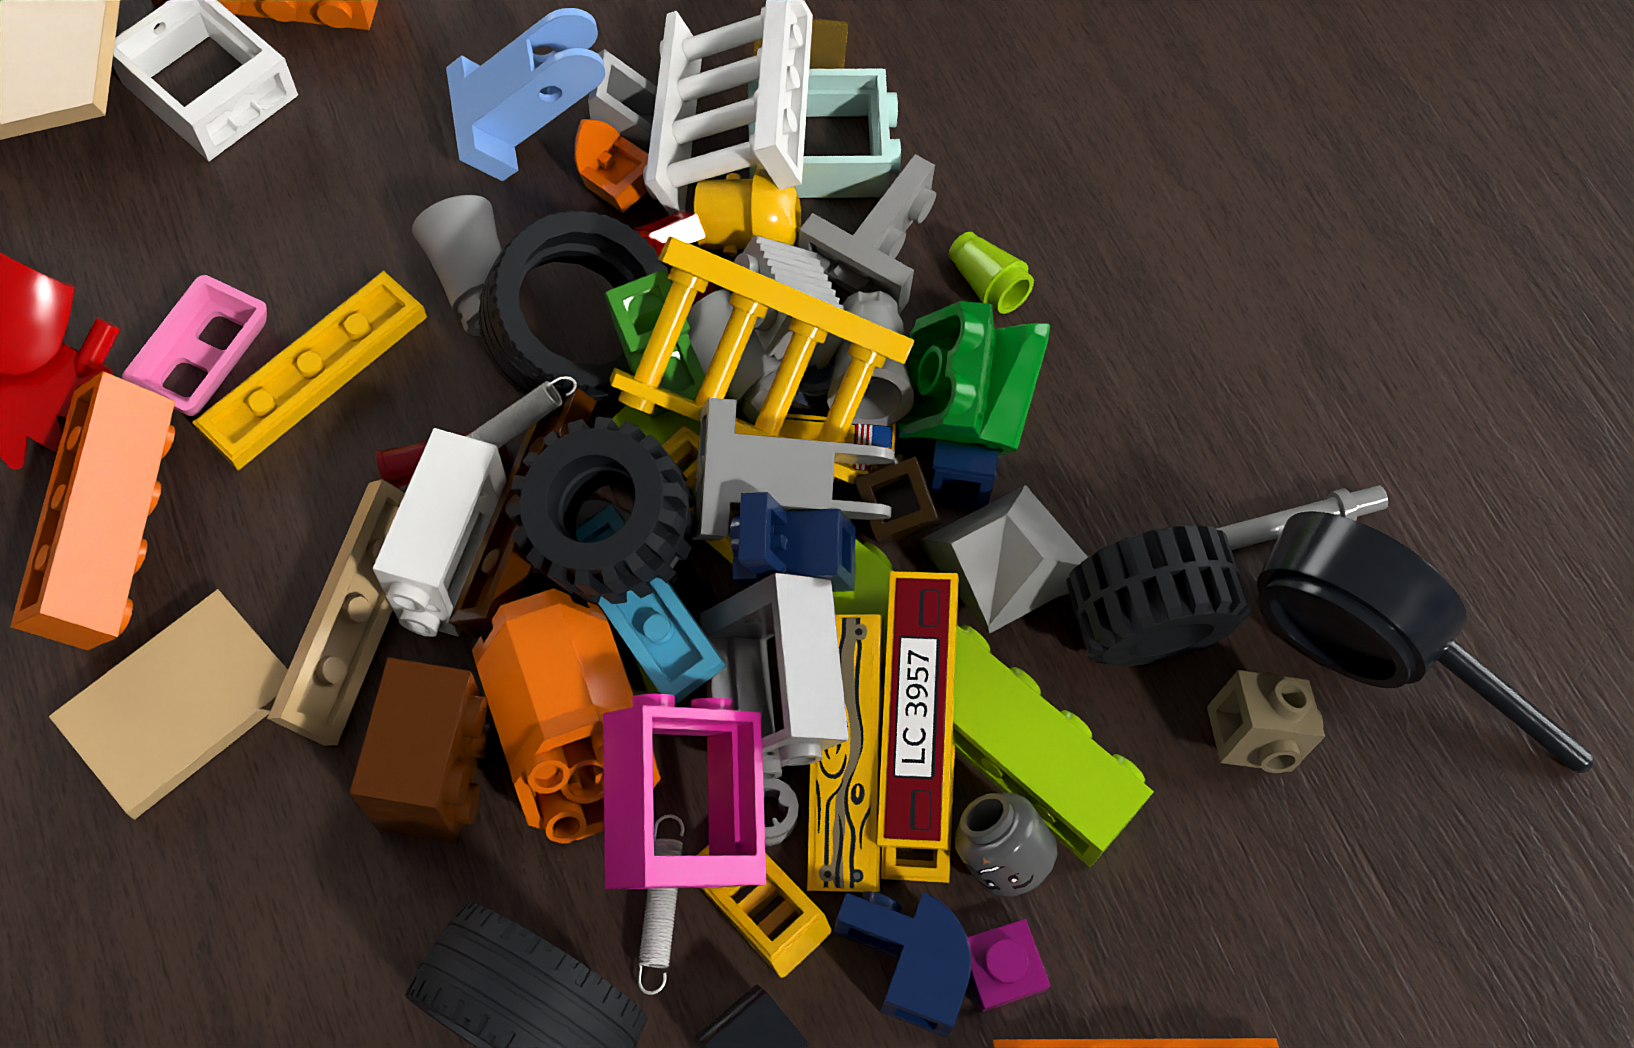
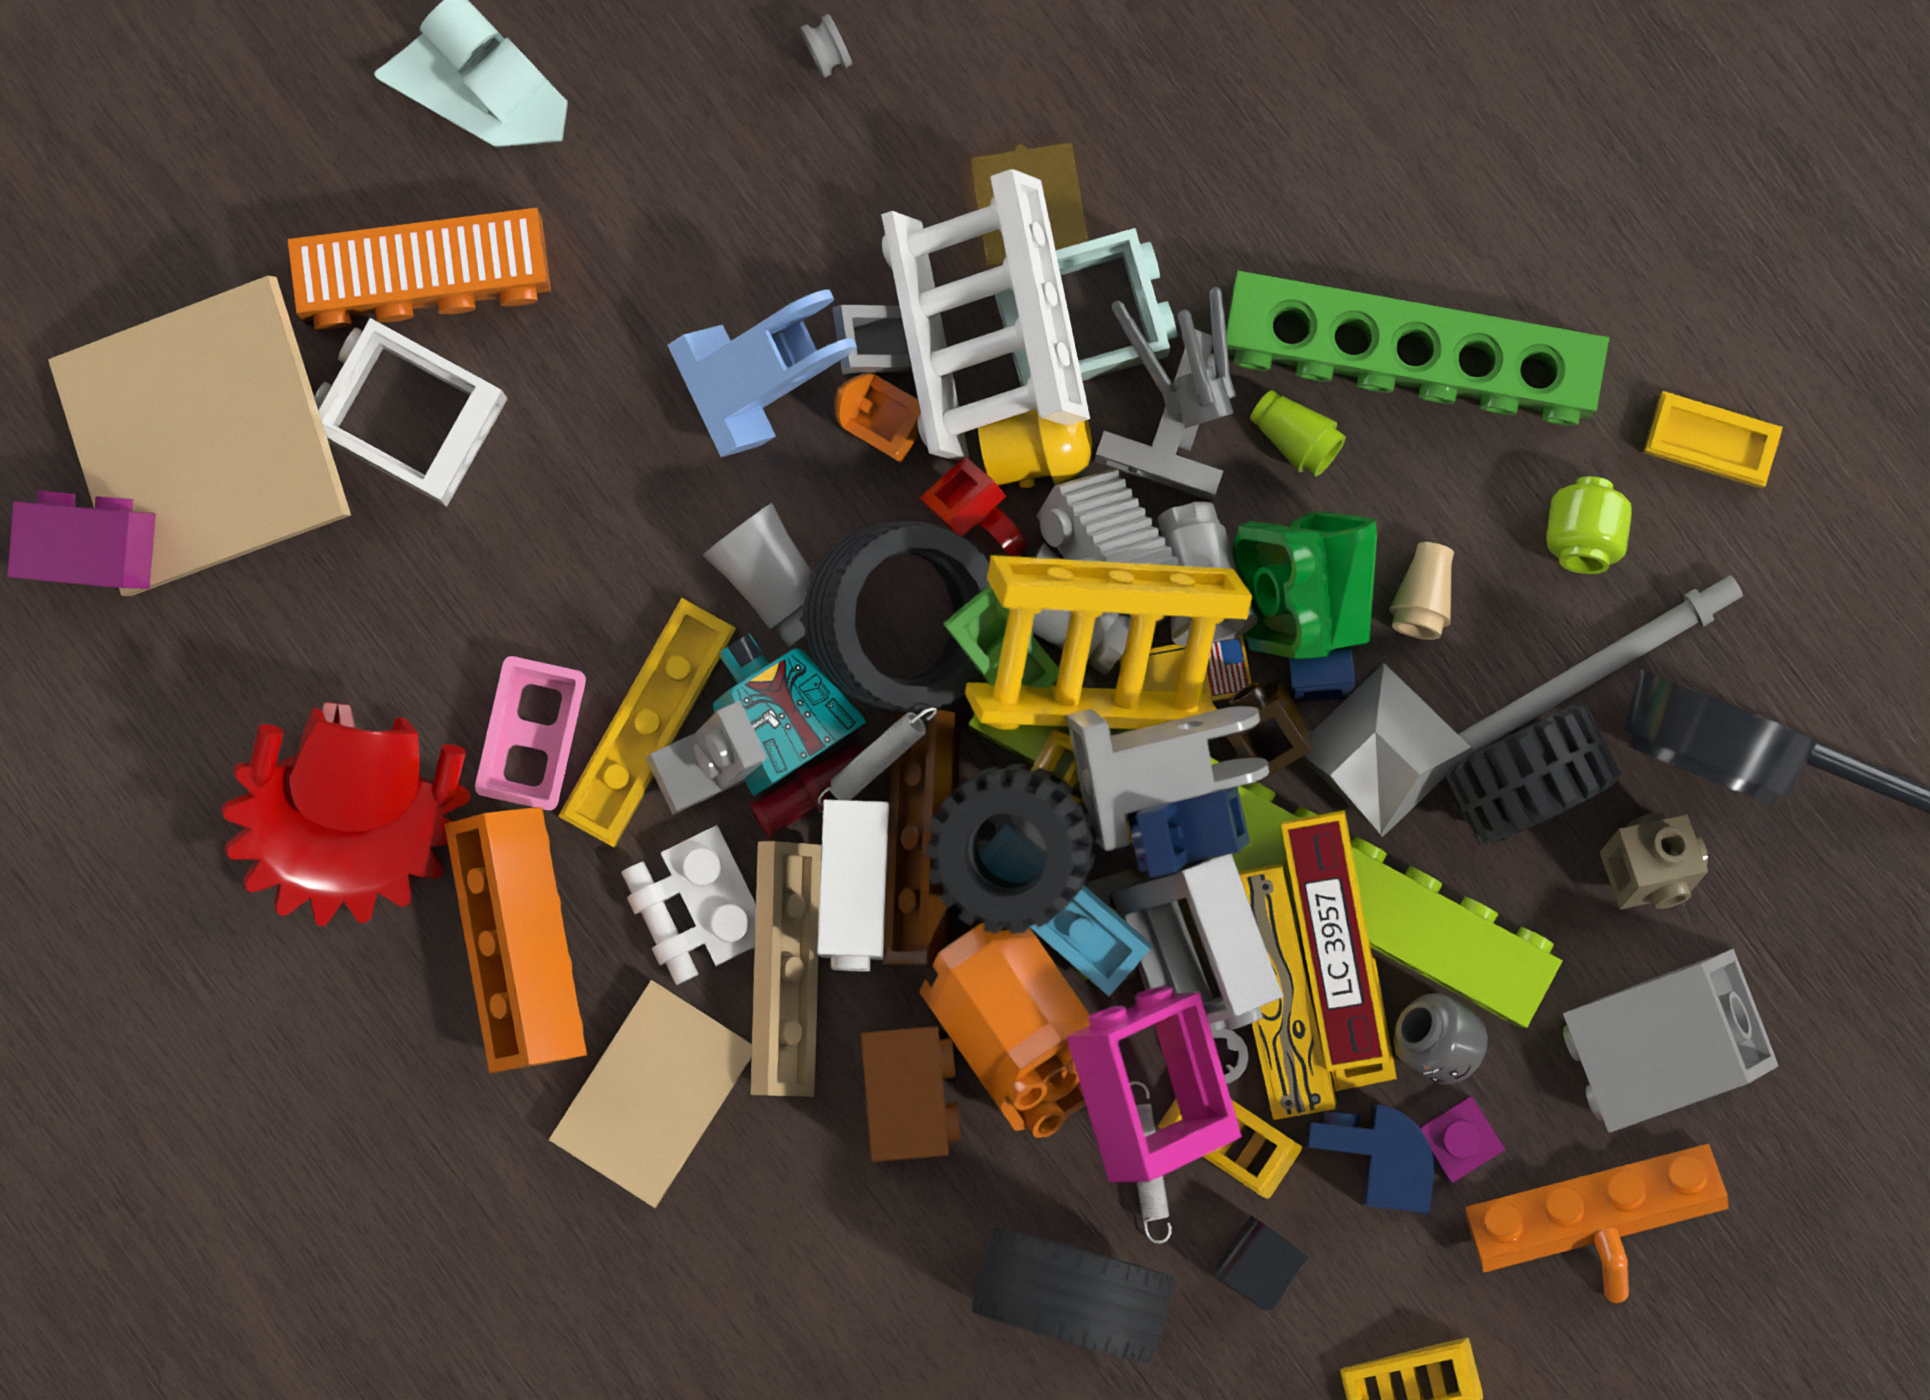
camera: 10 degrees left, 20 degrees up
(312, 526) = (714, 895): none -> white plate
(361, 398) = (709, 760): none -> light grey bracket
(432, 374) = (789, 707): none -> teal torso
(910, 196) = (1201, 393): none -> dark grey plant
(1077, 433) = (1425, 593): none -> tan cone
(1140, 224) = (1572, 356): none -> bright green brick
(1248, 910) = (1669, 1041): none -> light grey slope
(1249, 406) = (1589, 525): none -> lime head
(1375, 373) = (1712, 440): none -> yellow tile

